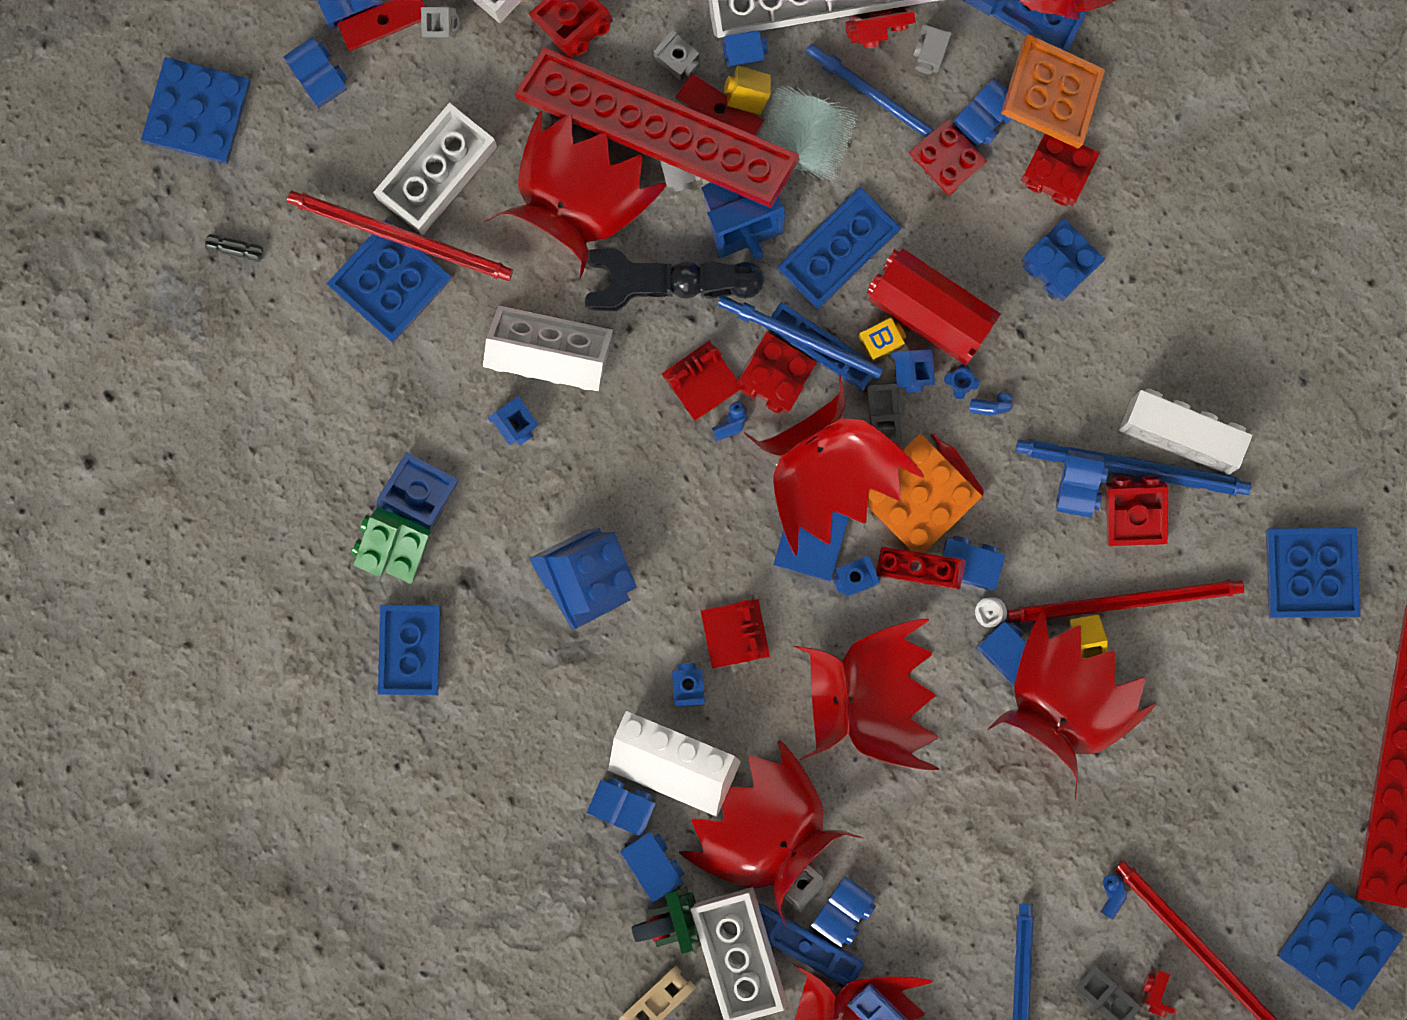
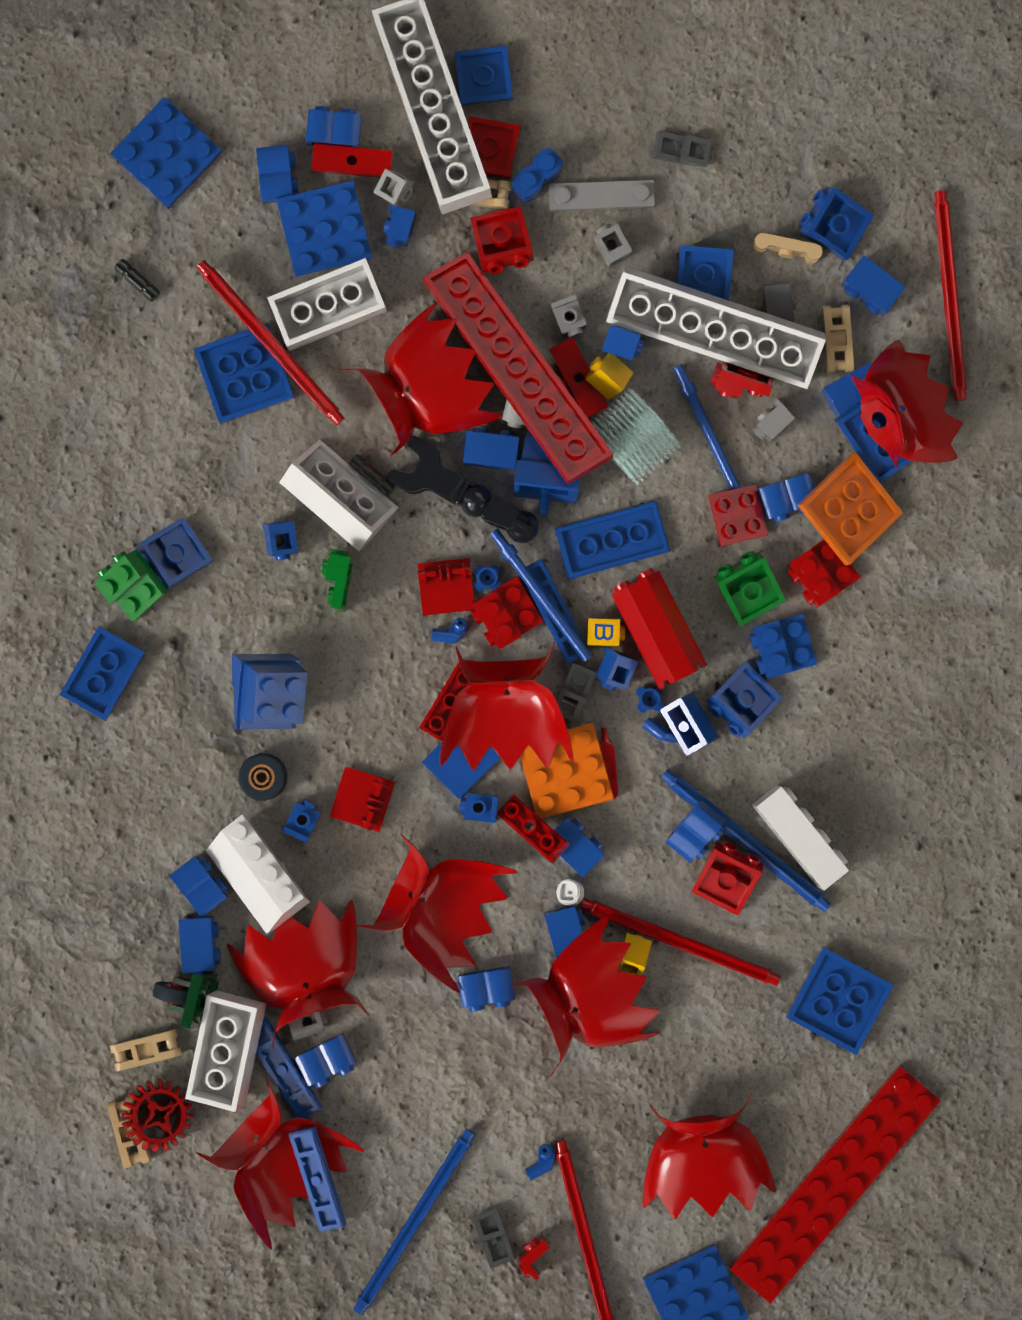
camera: 40 degrees right, 5 degrees up
(391, 98) = (324, 228): none -> blue plate
(464, 57) = (399, 226): none -> blue brick
(569, 312) = (371, 475): none -> pearl dark grey axle
(589, 422) = (337, 570): none -> green plate
(622, 673) = (268, 782): none -> black wheel
(672, 223) = (491, 450): none -> blue brick
(738, 342) = (482, 572): none -> blue plate
(765, 511) = (437, 717): none -> red tile
(962, 751) = (486, 988): none -> blue brick
(997, 220) = (749, 587): none -> green plate
(1015, 382) = (689, 723): none -> blue brick
(1054, 332) = (743, 700): none -> blue plate
(1260, 818) = (686, 1169): none -> red piece

